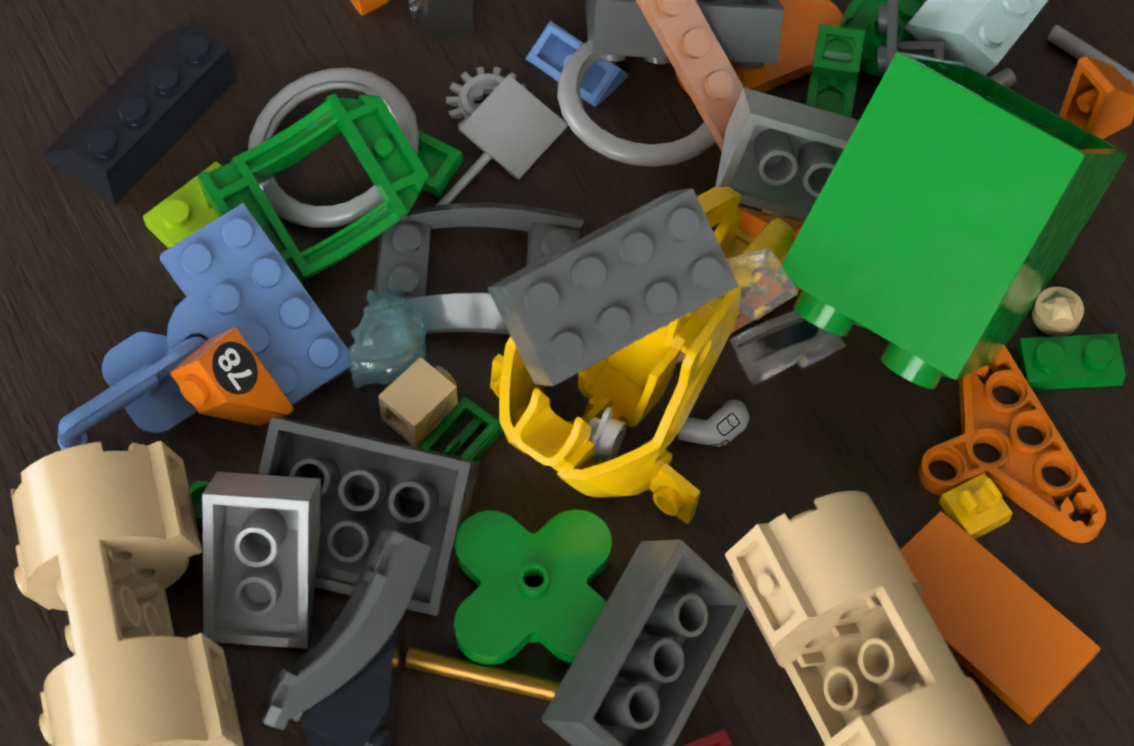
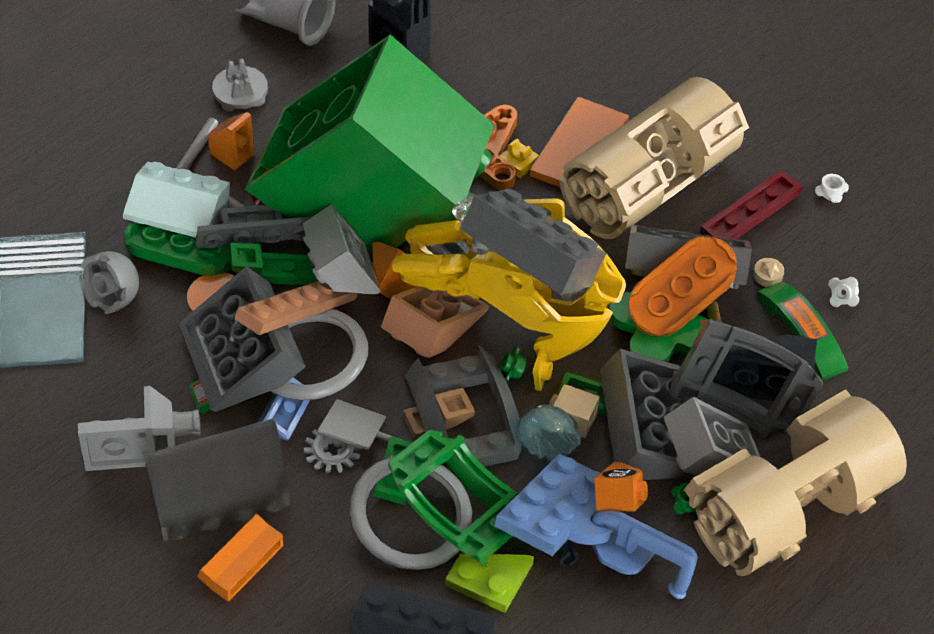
camera: 110 degrees left, 10 degrees down
(490, 247) = (454, 408): none -> medium nougat slope
(560, 603) = (682, 286): none -> orange tile

